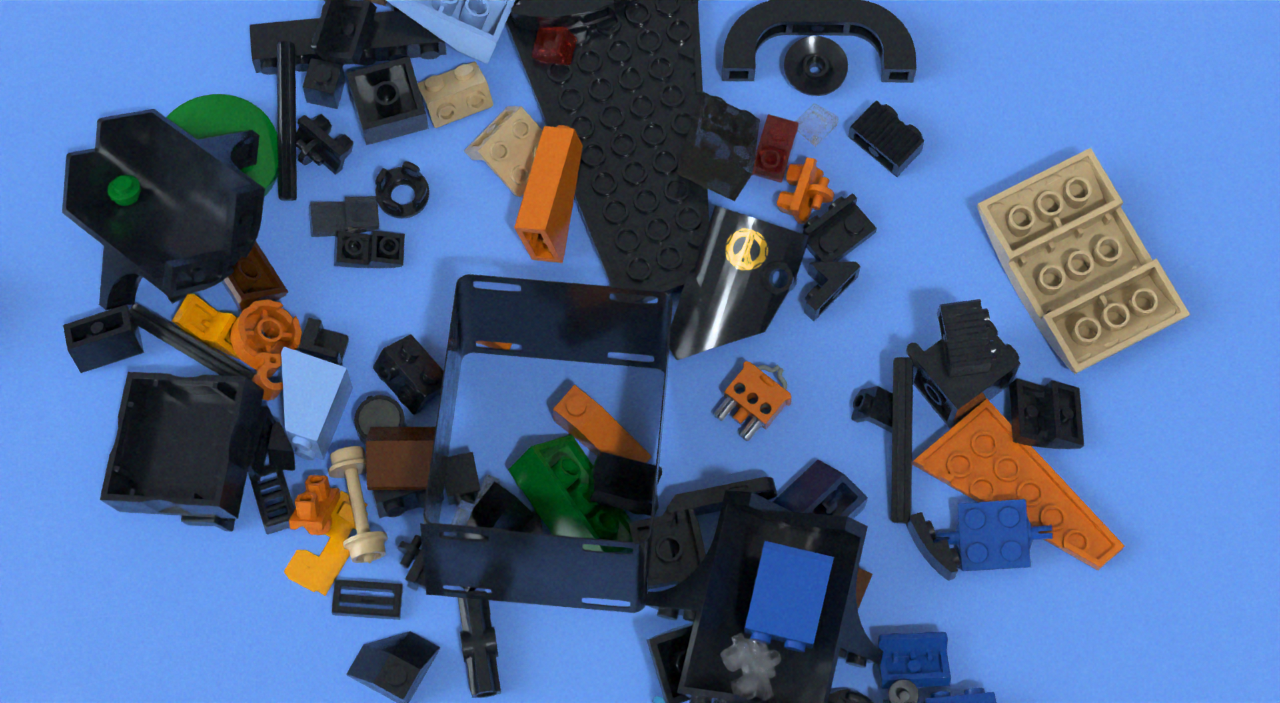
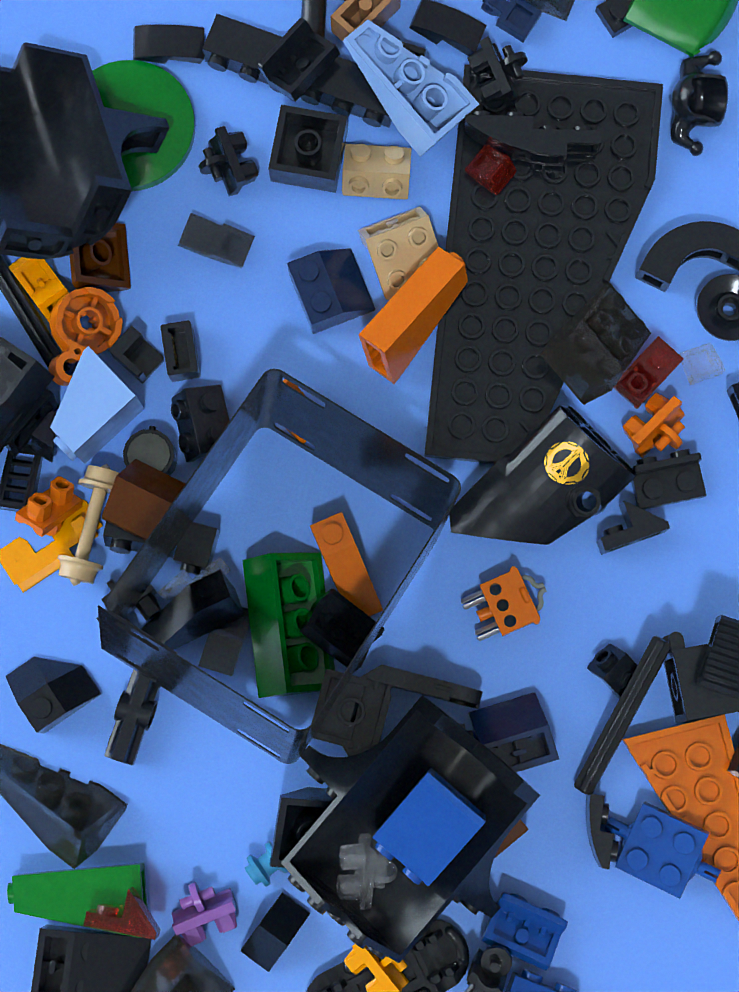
camera: 30 degrees right, 10 degrees up
(124, 190) = (25, 120): green plate -> none
(215, 70) = (167, 42): none -> black slope
(286, 121) = (206, 123): black axle -> none
(324, 83) = (259, 103): black brick -> none
(338, 598) = (83, 630): black tile -> none
(361, 322) = (180, 351): none -> black piece
(369, 251) = (223, 284): black slope -> none
(404, 175) = (272, 226): black piece -> none
(464, 210) = (330, 288): none -> dark blue slope

